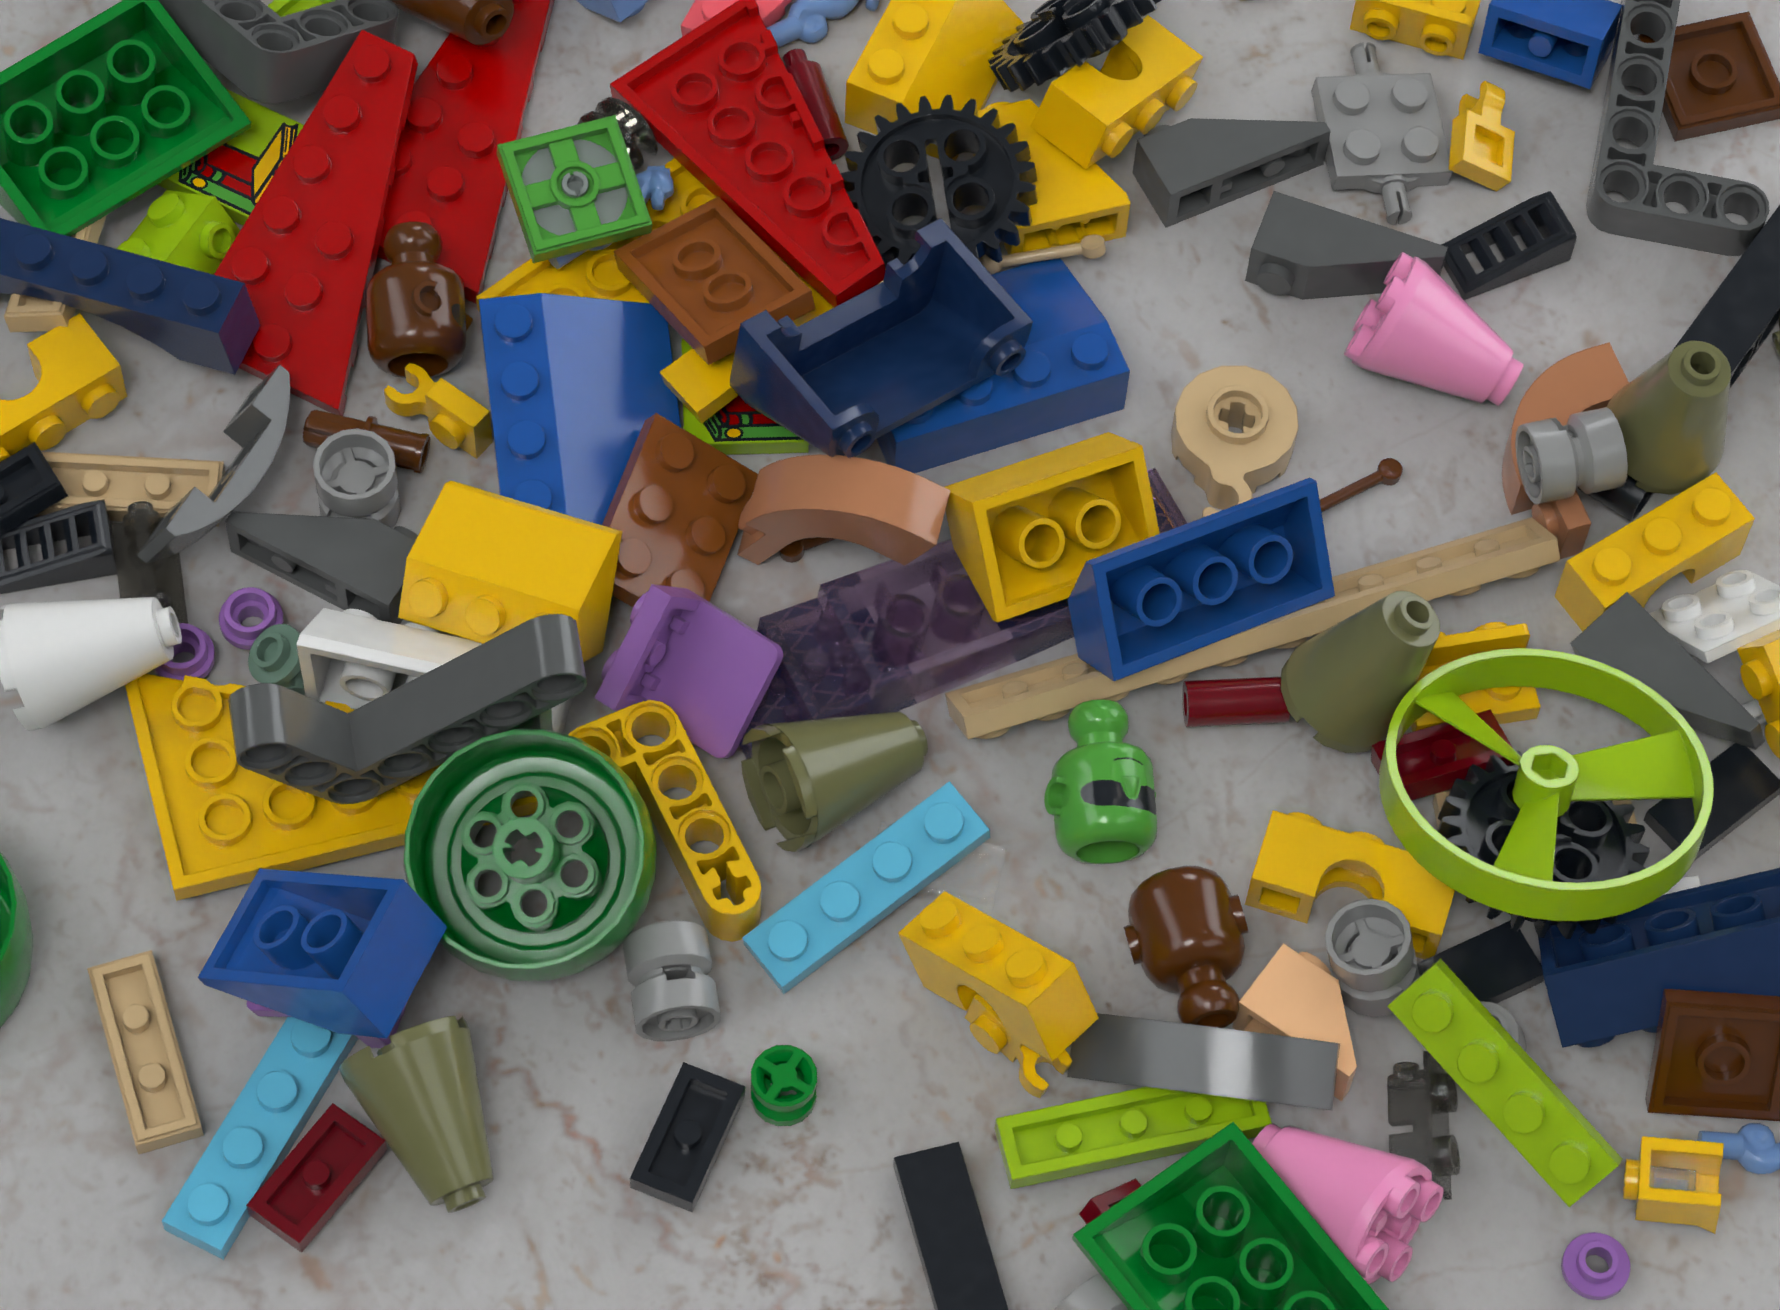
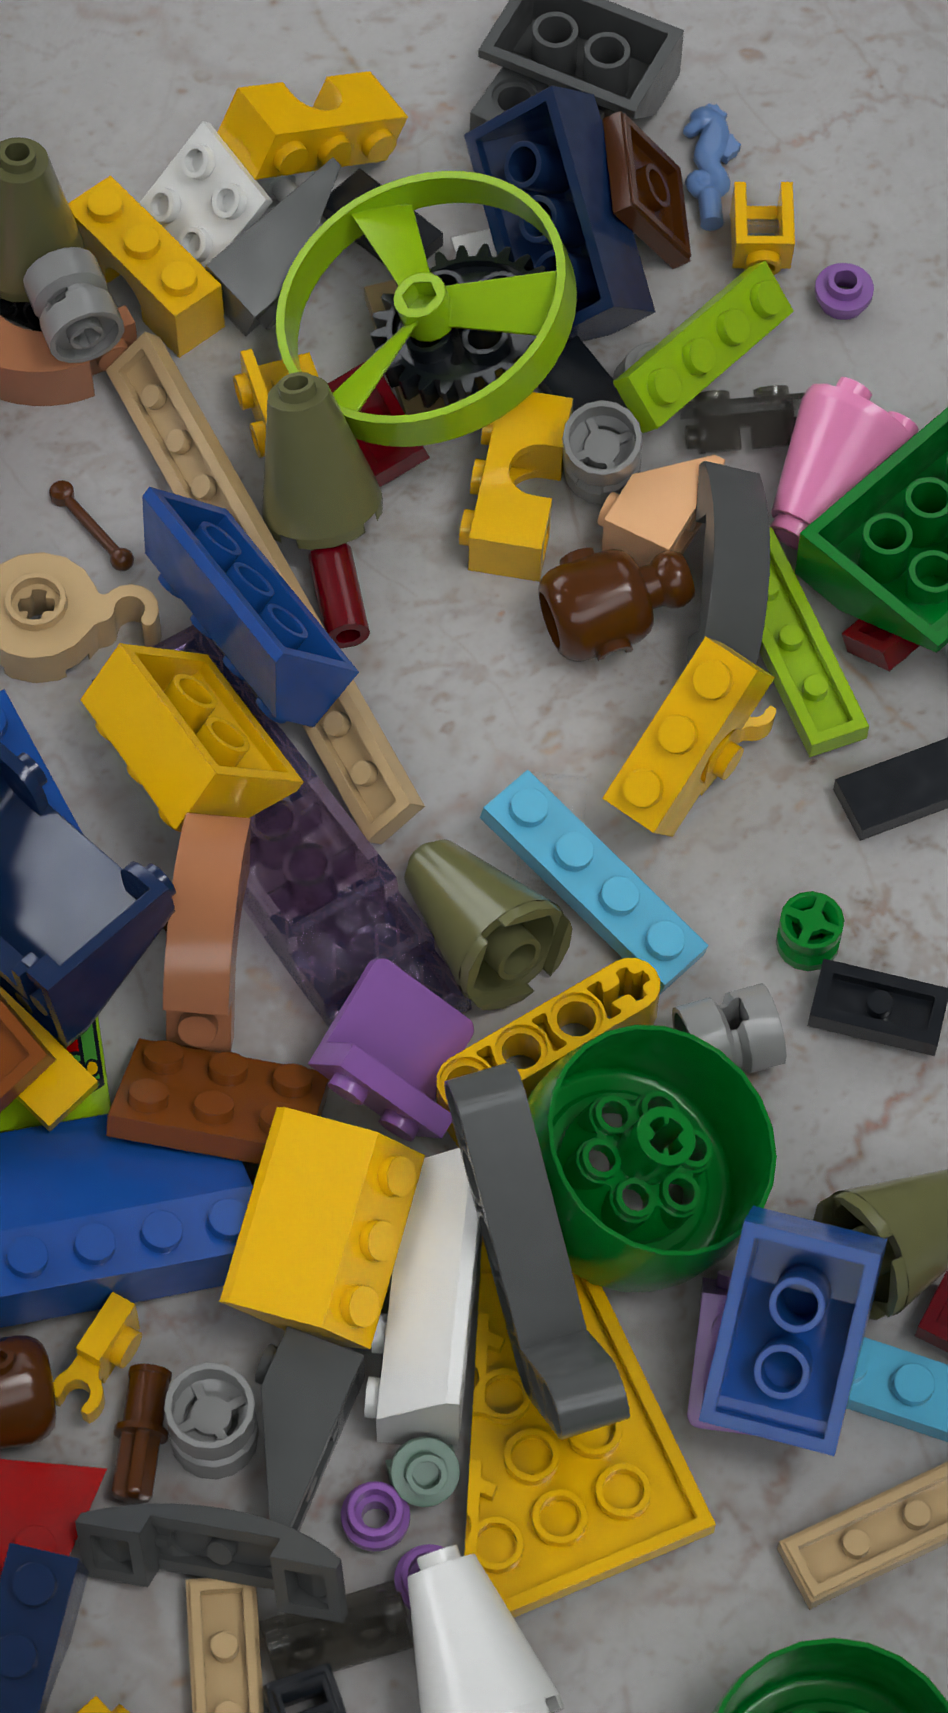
camera: 95 degrees left, 0 degrees up
(1102, 789) = (462, 685): bright green piece -> none

